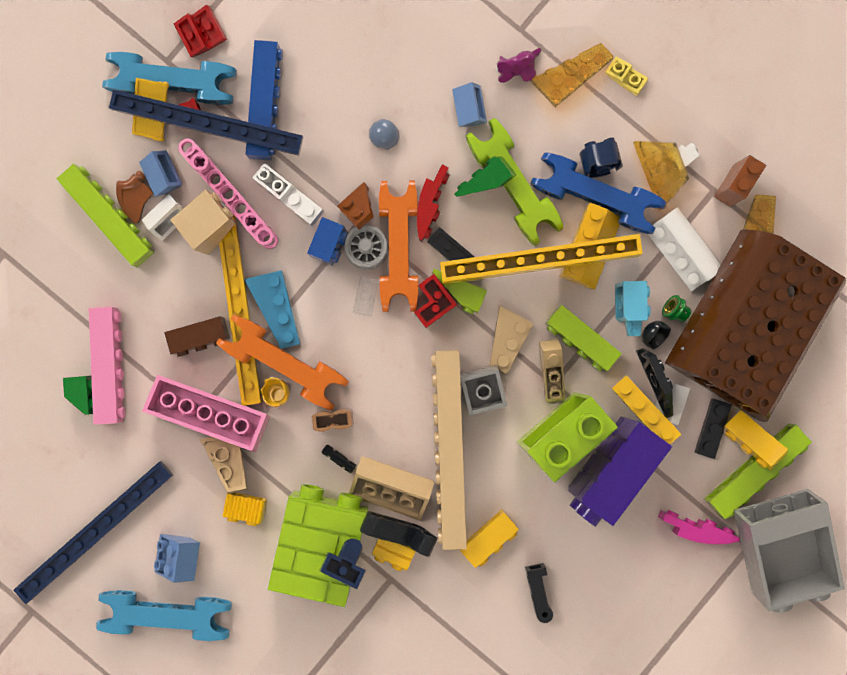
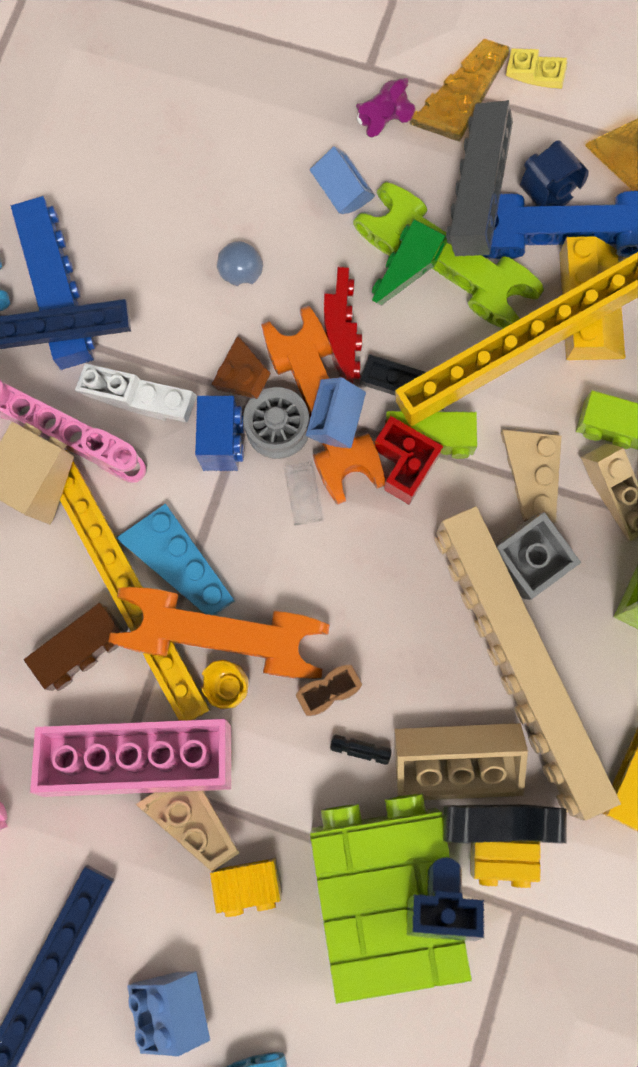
camera: 15 degrees left, 10 degrees down
(402, 258) = (336, 413): none -> medium blue brick
(554, 142) = (480, 179): none -> dark grey brick

